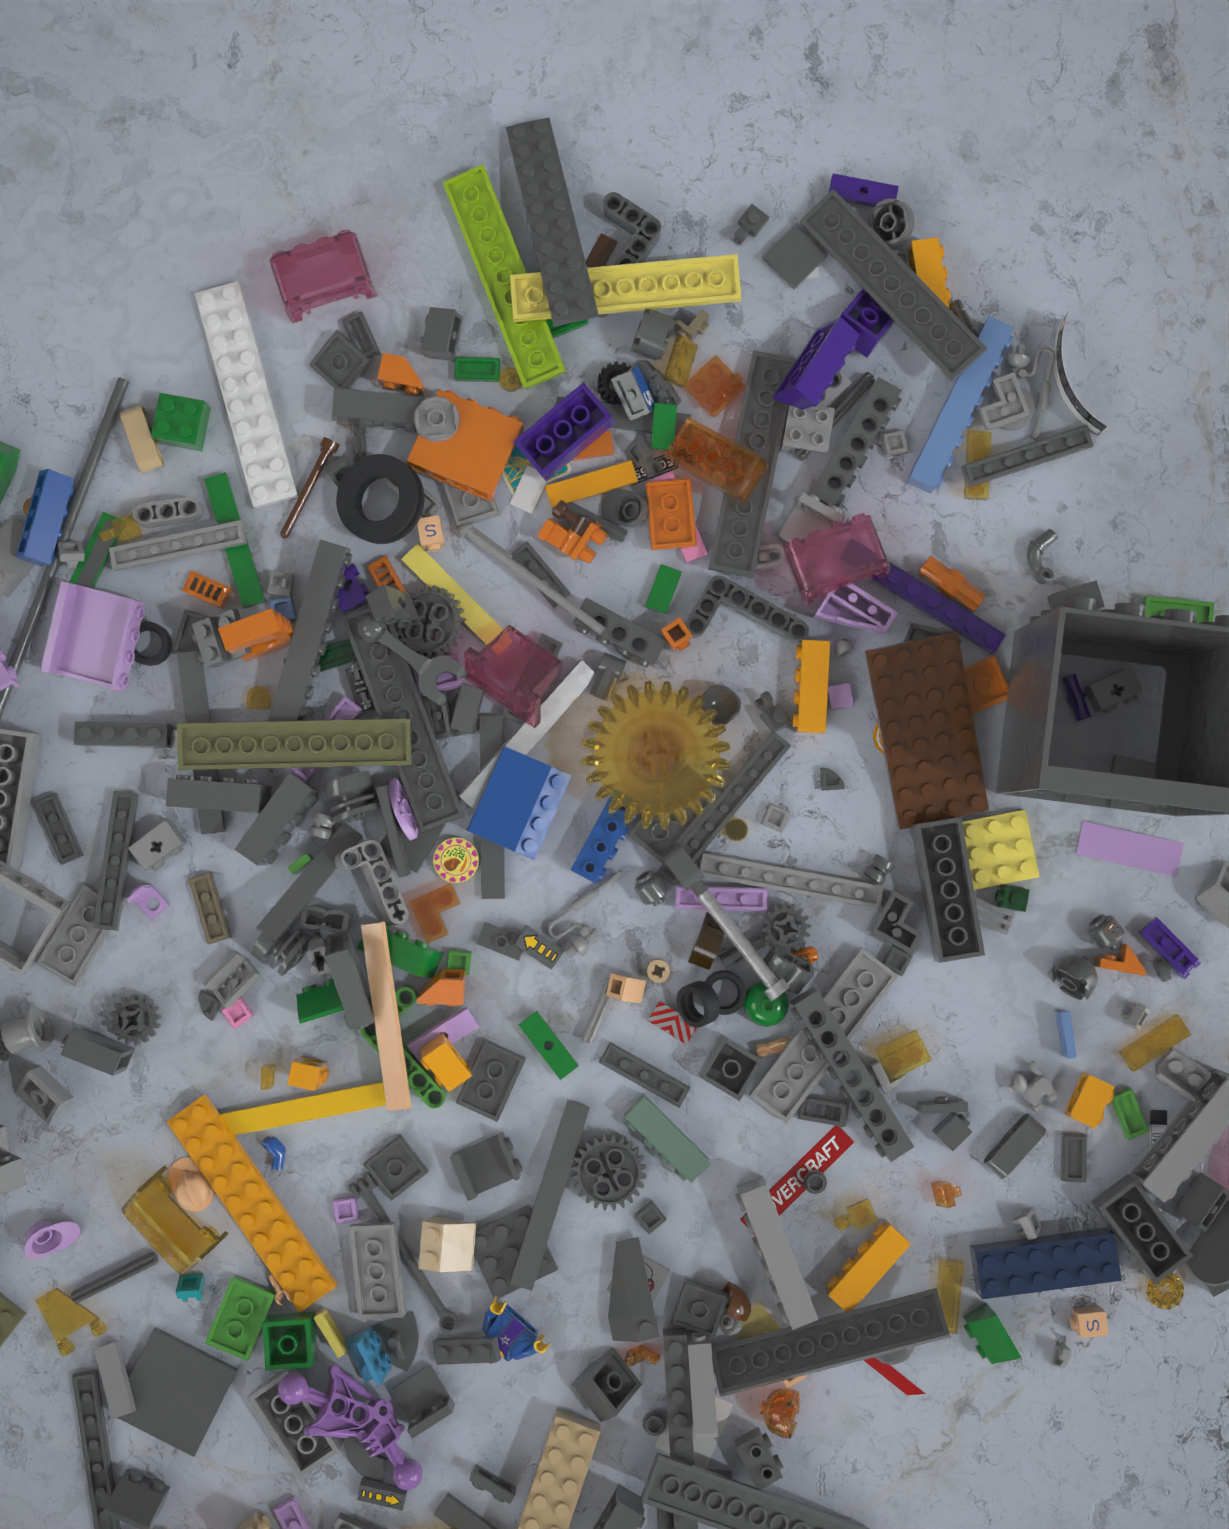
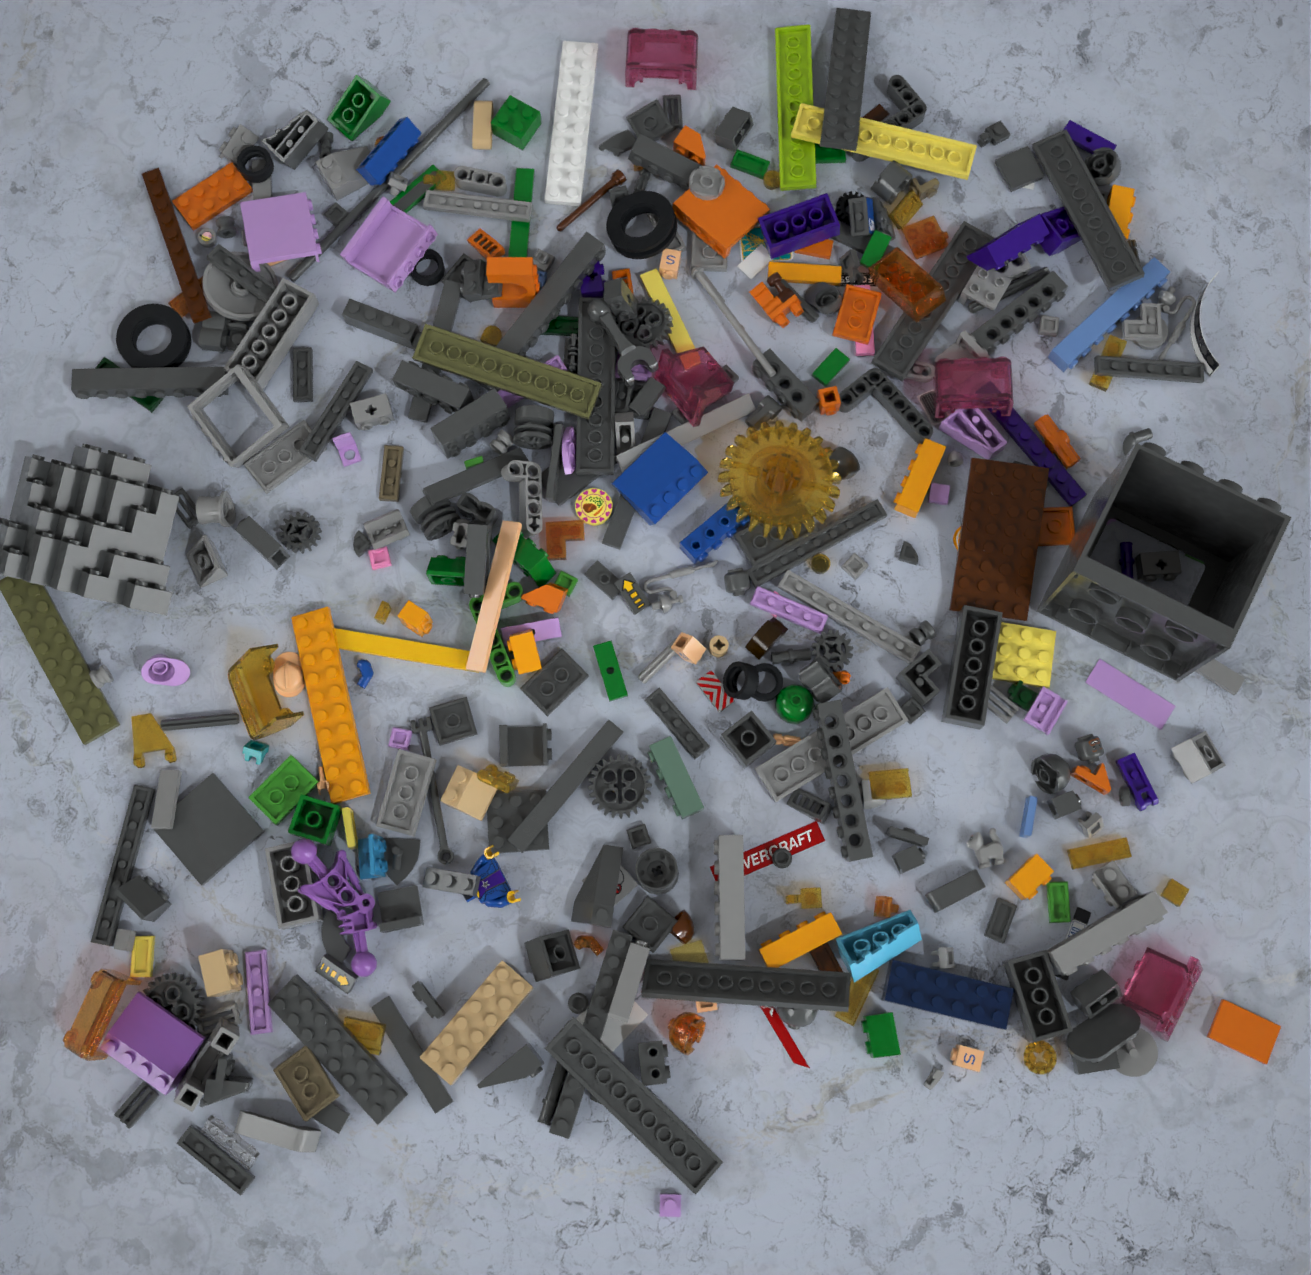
camera: 20 degrees right, 10 degrees down
(14, 616) = (335, 214): none -> dark grey tile
(314, 400) = (619, 143): none -> dark grey slope
(457, 760) = (624, 431): none -> light grey slope
(480, 1219) = (503, 781): none -> clear yellow plate
(530, 560) = (738, 310): dark grey tile -> none
(675, 1262) = (651, 861): none -> dark grey wheel
(691, 878) = (772, 580): flat silver piece -> none
(730, 1326) = (671, 945): light grey plate -> none
(773, 716) = (881, 488): dark grey plate -> none
(787, 588) = (927, 403): none -> sticker
(907, 1278) = (825, 959): none -> reddish brown tile
(952, 1240) = (878, 943): none -> medium azure wedge
(1044, 905) = (1045, 710): none -> lavender plate
(1101, 1006) = (1064, 804): none -> dark grey brick

